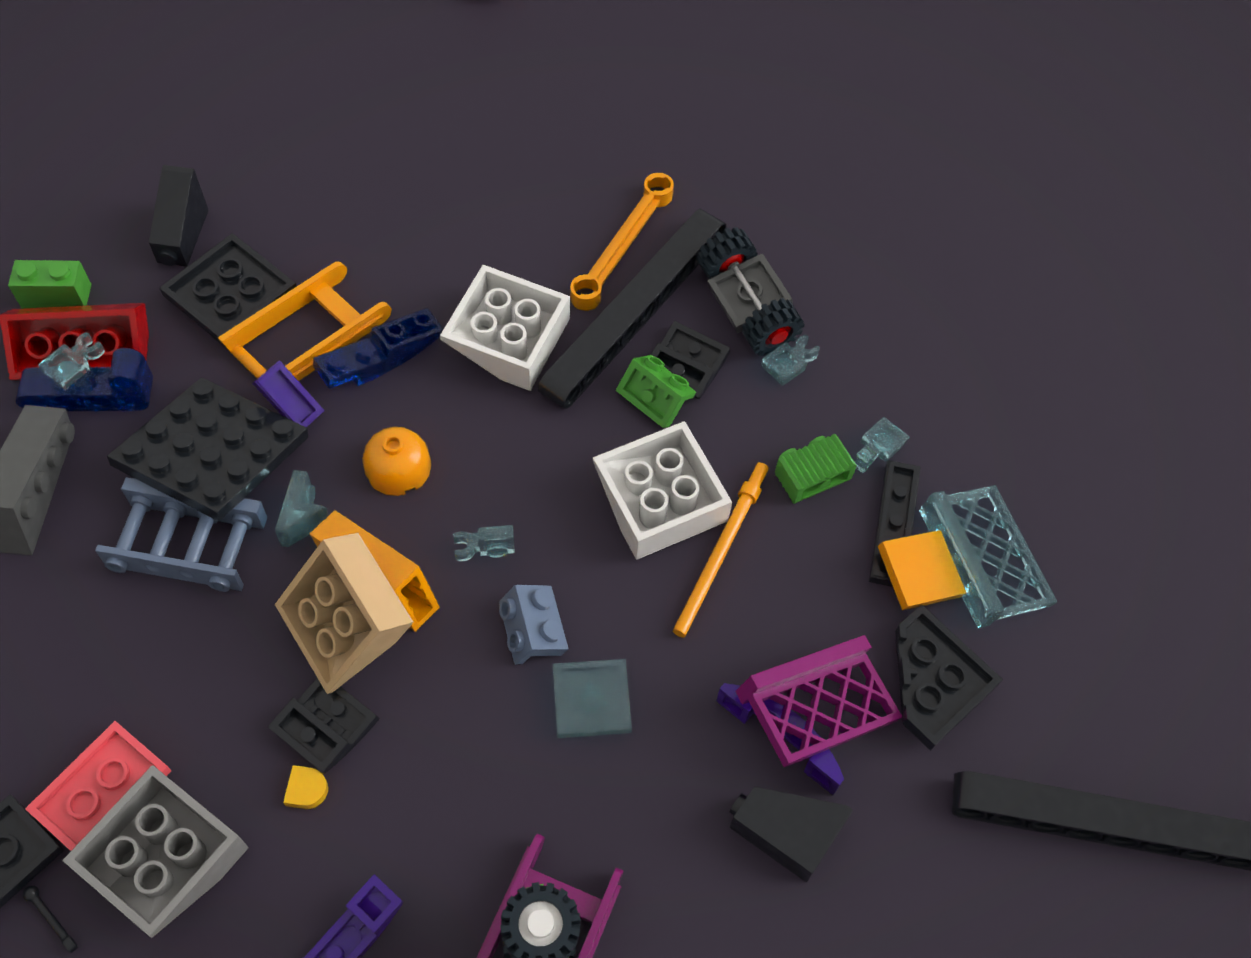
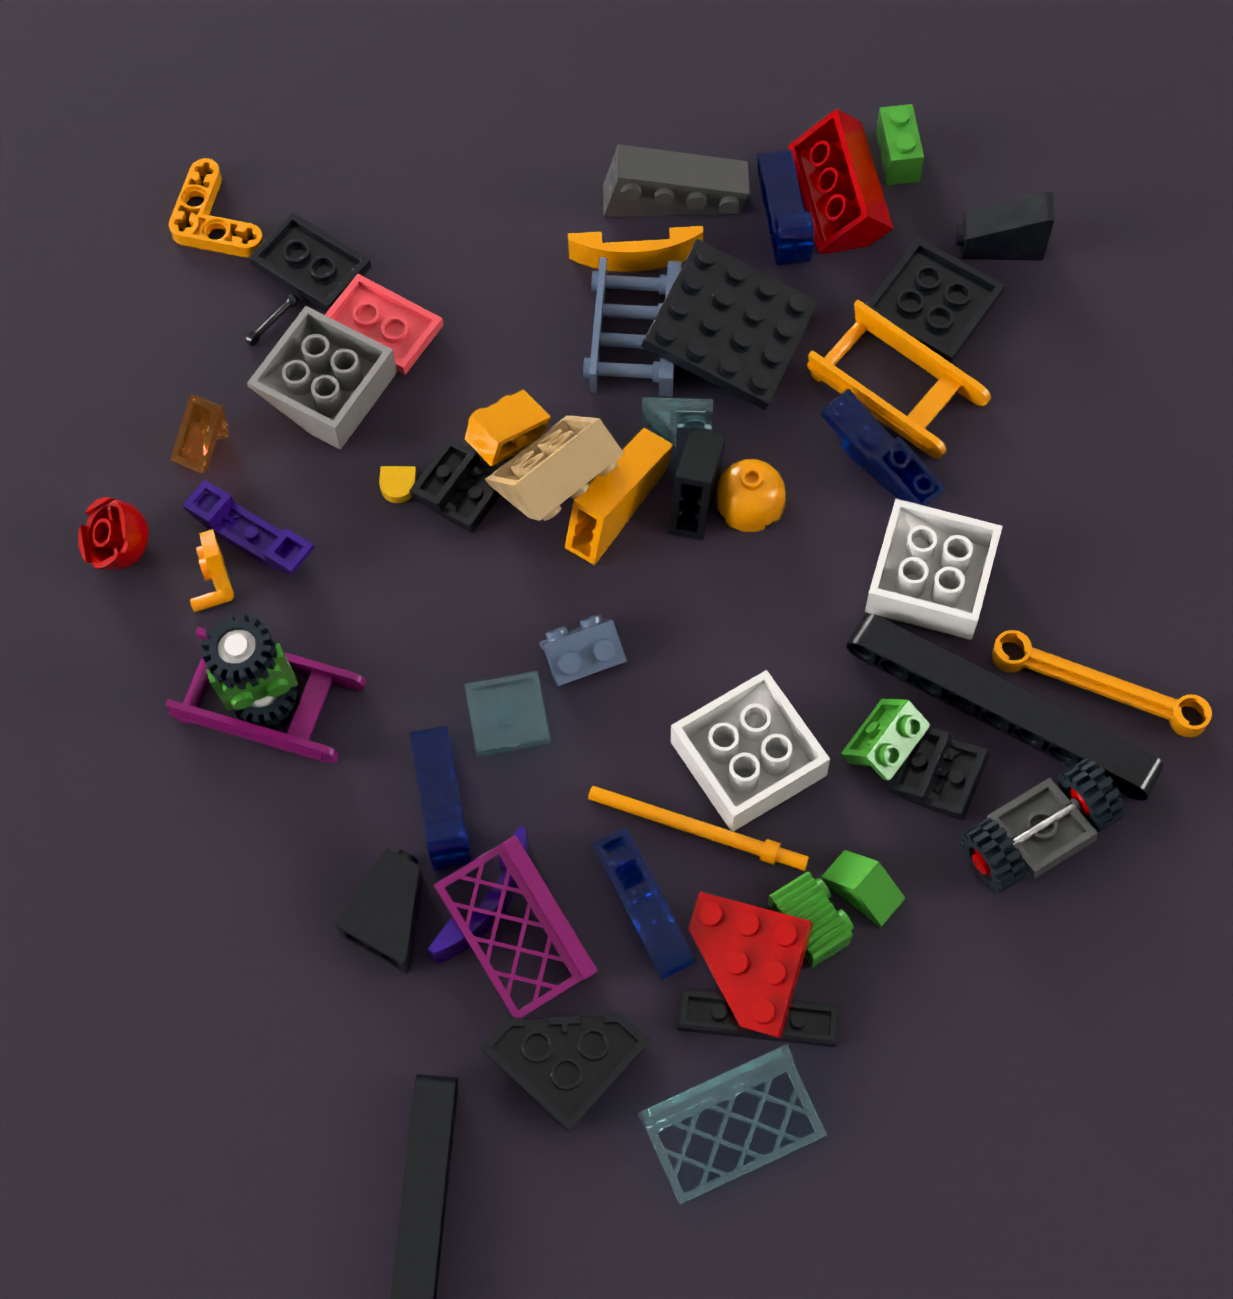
camera: 90 degrees right, 5 degrees up
(70, 364) = (797, 179): clear light blue plate -> none
(79, 562) = (633, 255): none -> light orange slope
(274, 662) = (506, 427): none -> light orange brick
(288, 395) = (802, 379): dark purple tile -> none
(377, 498) = (696, 483): none -> black slope
(490, 541) = (666, 598): clear light blue plate -> none
(679, 766) = (440, 798): none -> clear blue beam
(782, 429) = (864, 885): none -> bright green slope
(789, 362) = (957, 882): clear light blue plate -> none
(793, 593) = (644, 903): none -> clear blue slope
(853, 512) = (752, 958): none -> red plate
(881, 440) = (862, 997): clear light blue plate -> none
(921, 569) = (694, 1041): light orange tile -> none

